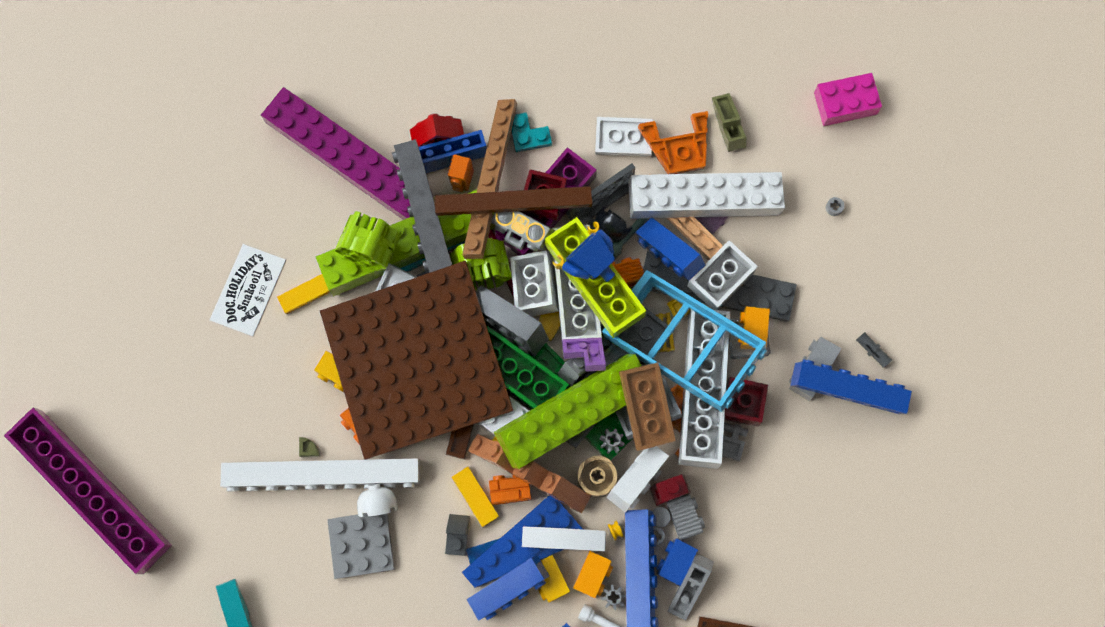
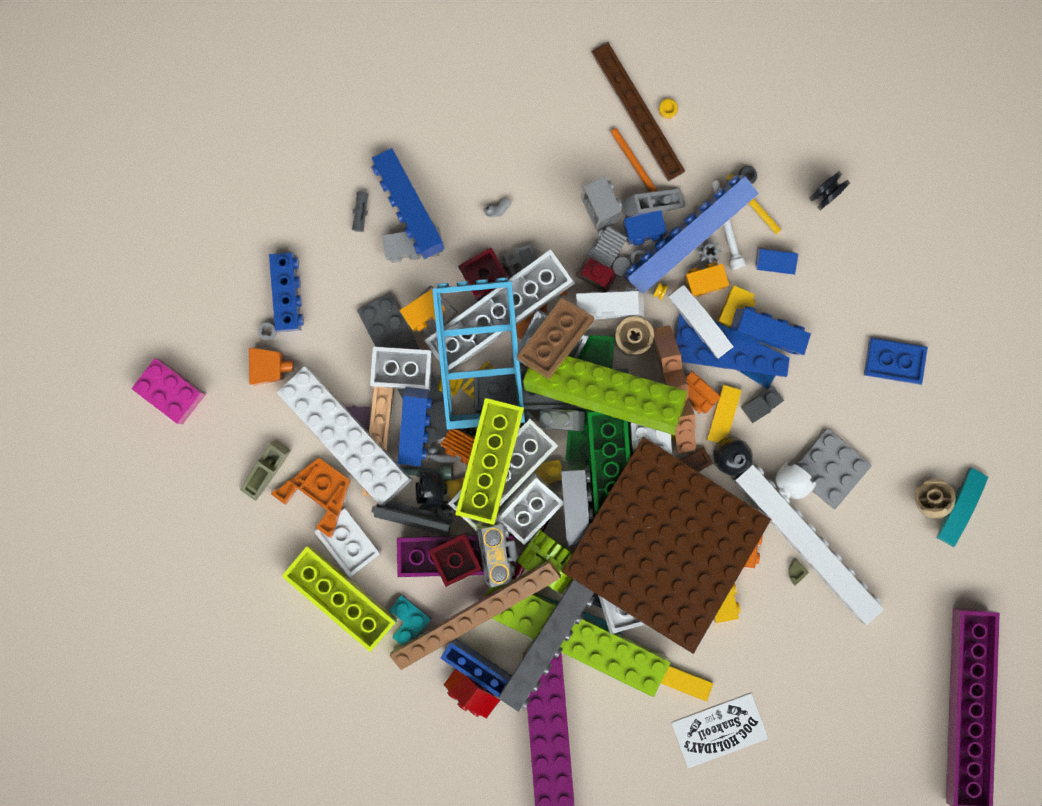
camera: 135 degrees left, 10 degrees up
(264, 604) = (935, 498): none -> tan cylinder
(365, 245) = (611, 662): lime piece -> none
(437, 474) = (732, 456): none -> black cylinder
(460, 173) = (489, 643): orange brick -> none
(513, 201) = (483, 576): reddish brown tile -> none
(588, 97) = (339, 598): none -> neon yellow brick
(588, 348) = (547, 419): medium lavender plate -> none
(590, 257) = (480, 473): blue torso -> none
(617, 439) = (594, 344): light grey gear -> none
(631, 252) = (441, 458): none -> light grey arm
(725, 538) = (601, 203): none -> light grey brick
(739, 602) = (633, 160): none -> orange bar
(788, 456) = (497, 210): none -> light grey arm
(807, 184) = (267, 366): none -> orange torso
(855, 242) = (285, 292): none -> blue brick

